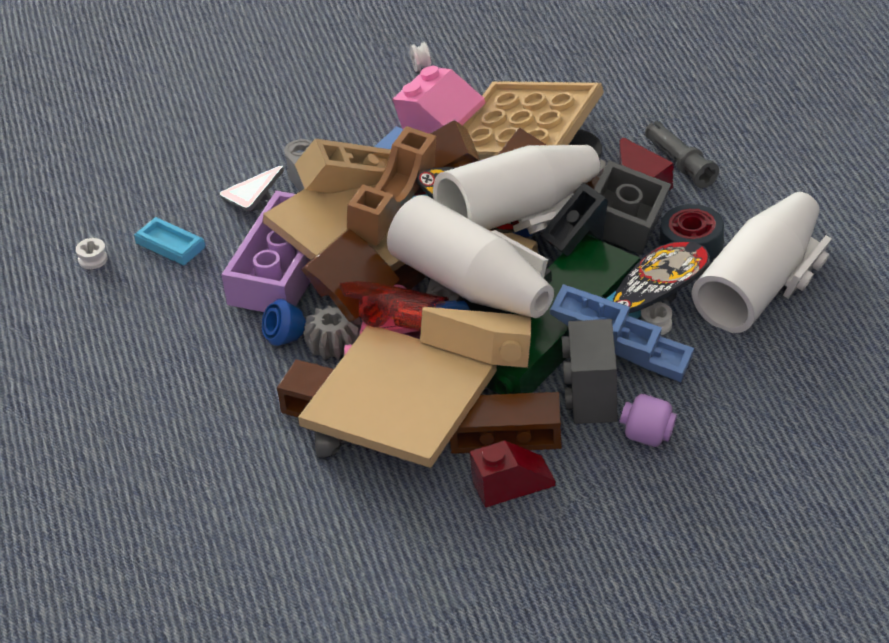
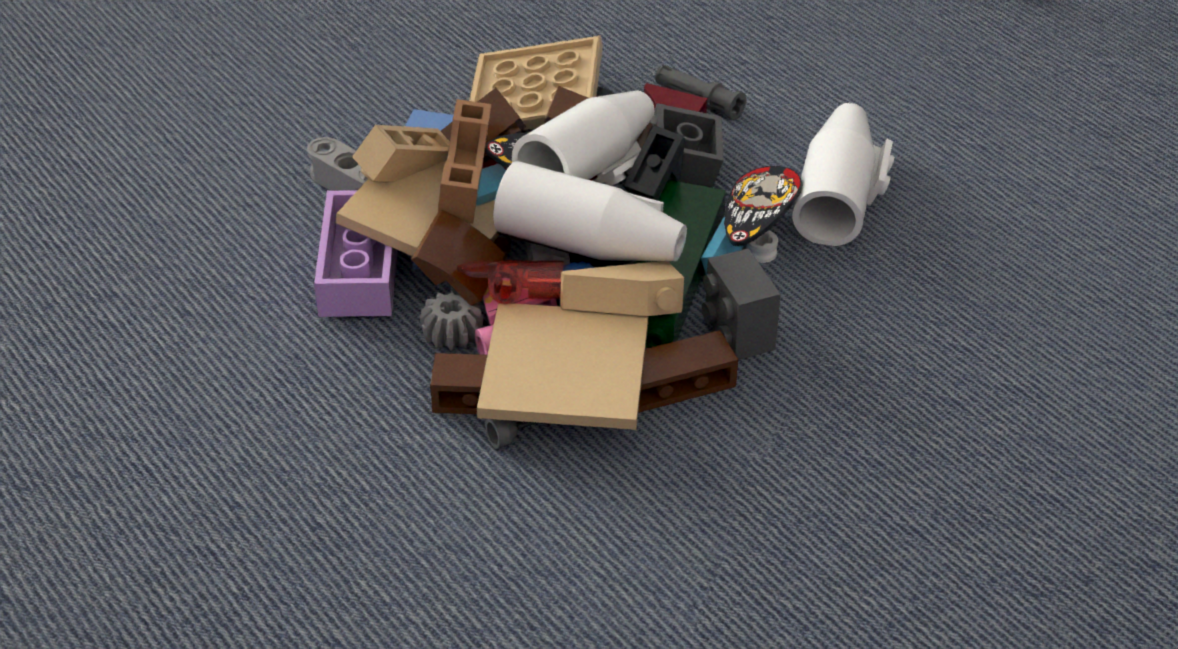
camera: 25 degrees left, 0 degrees up
(91, 253) = (139, 293): white bush -> none
(169, 241) = (219, 265): medium azure tile -> none
(252, 191) = (288, 199): piece -> none
(282, 323) = (393, 321): blue cone -> none
(420, 56) = (394, 41): white bush -> none
(436, 99) = (437, 79): bright pink slope -> none
(508, 472) = (702, 421): dark red slope -> none
(633, 338) = (789, 277): medium blue slope -> none
(648, 420) = (813, 340): lavender head -> none
(694, 224) = (751, 152): wheel -> none

